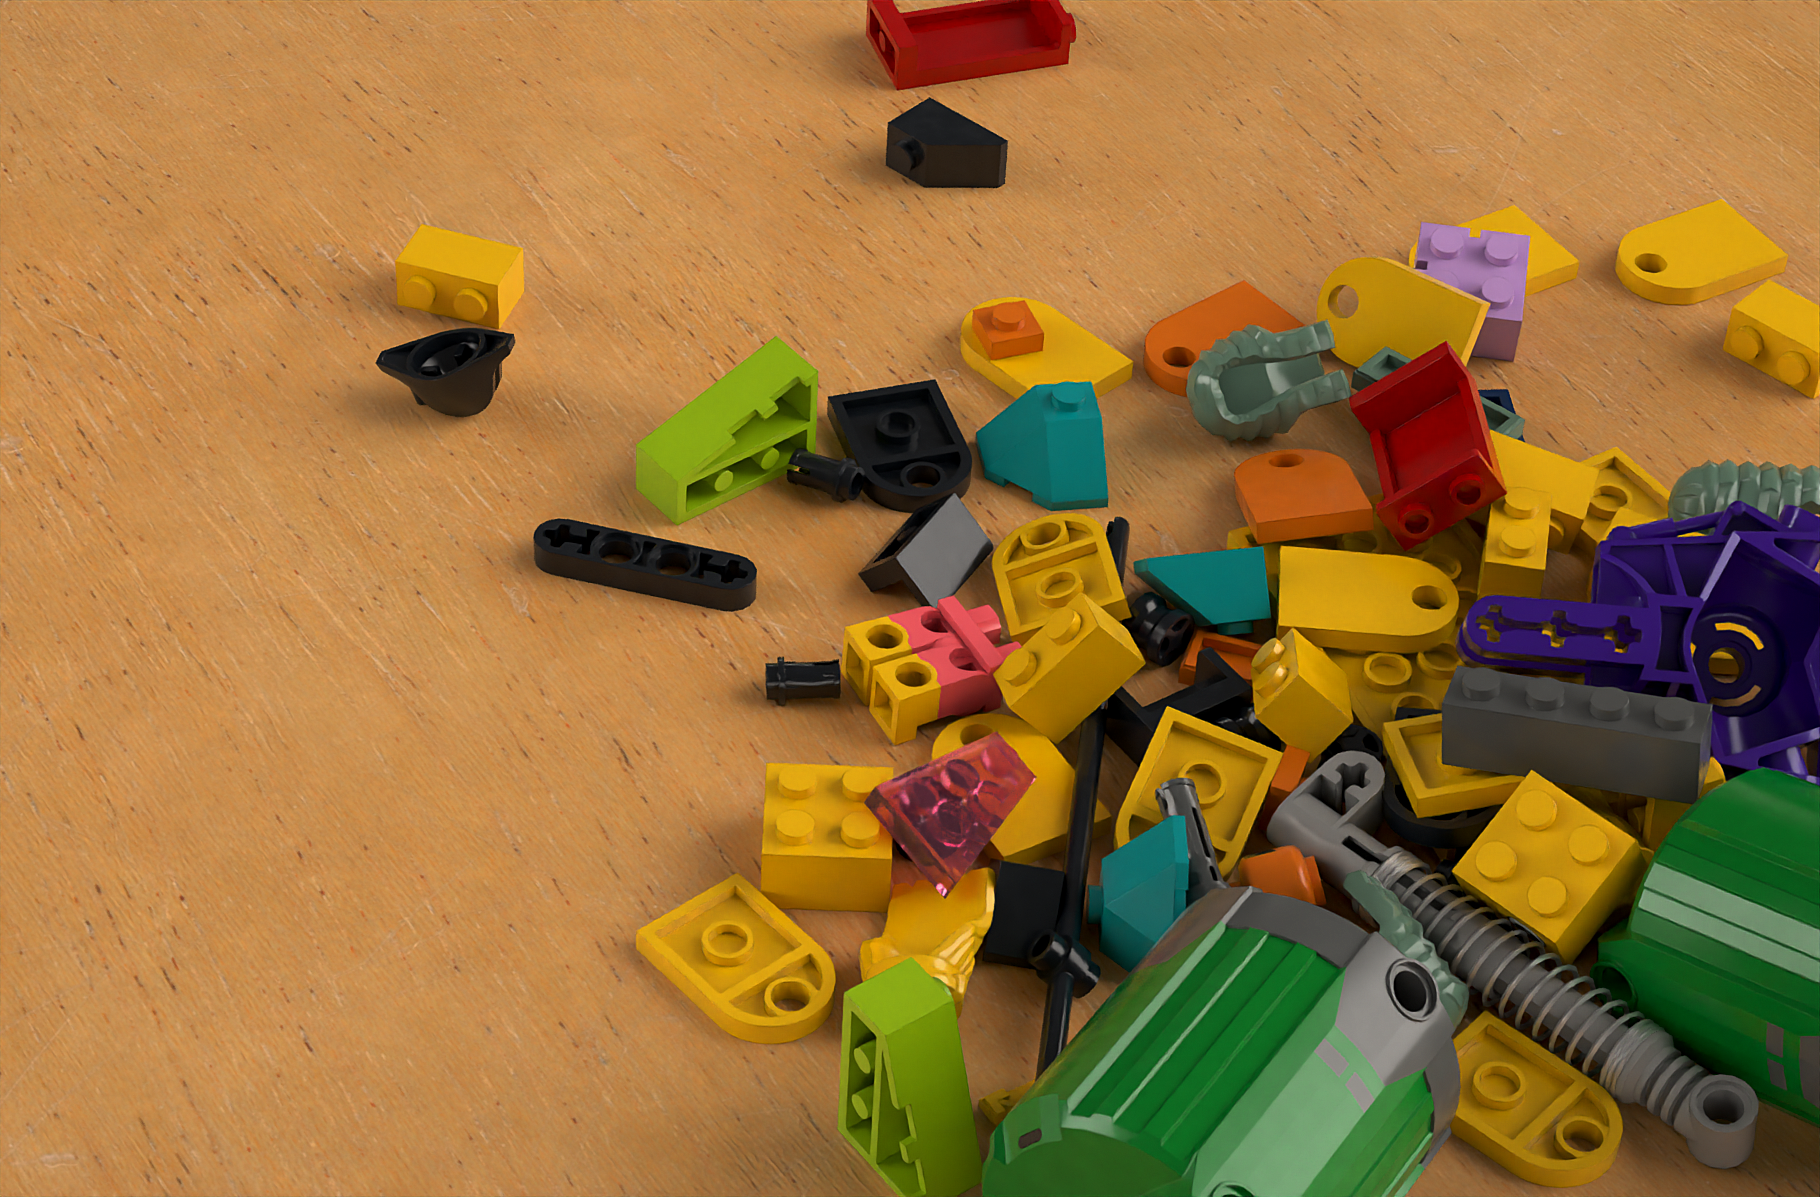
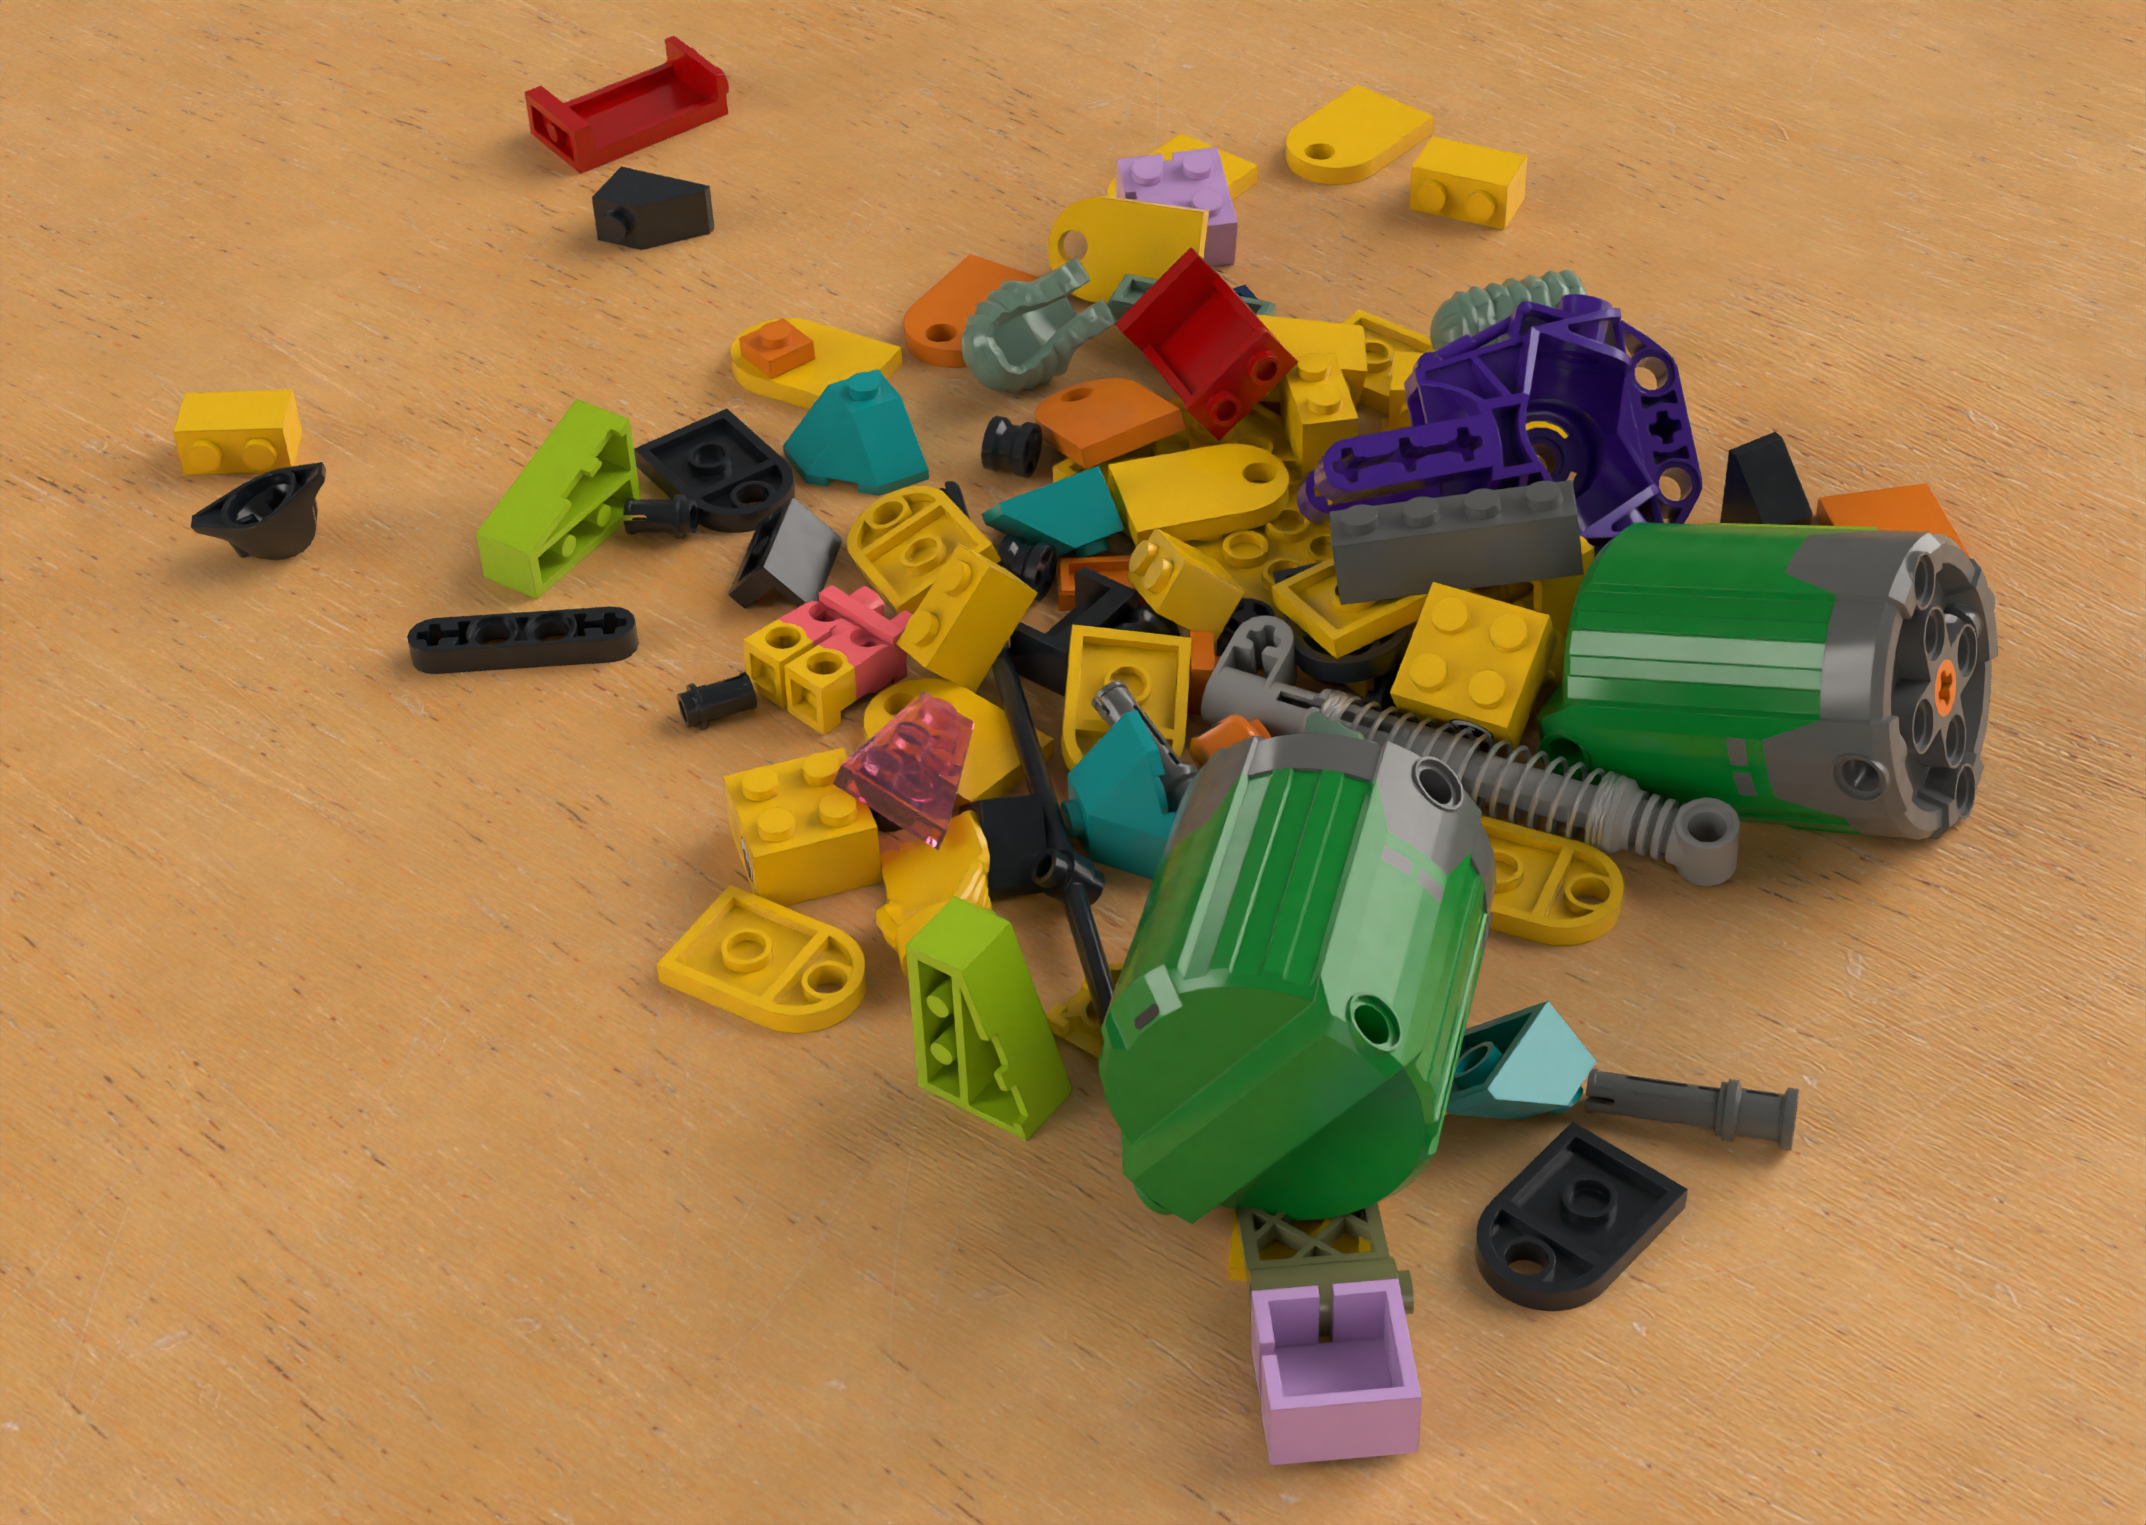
camera: 15 degrees left, 0 degrees up
(1198, 498) = (1011, 446): none -> black wheel

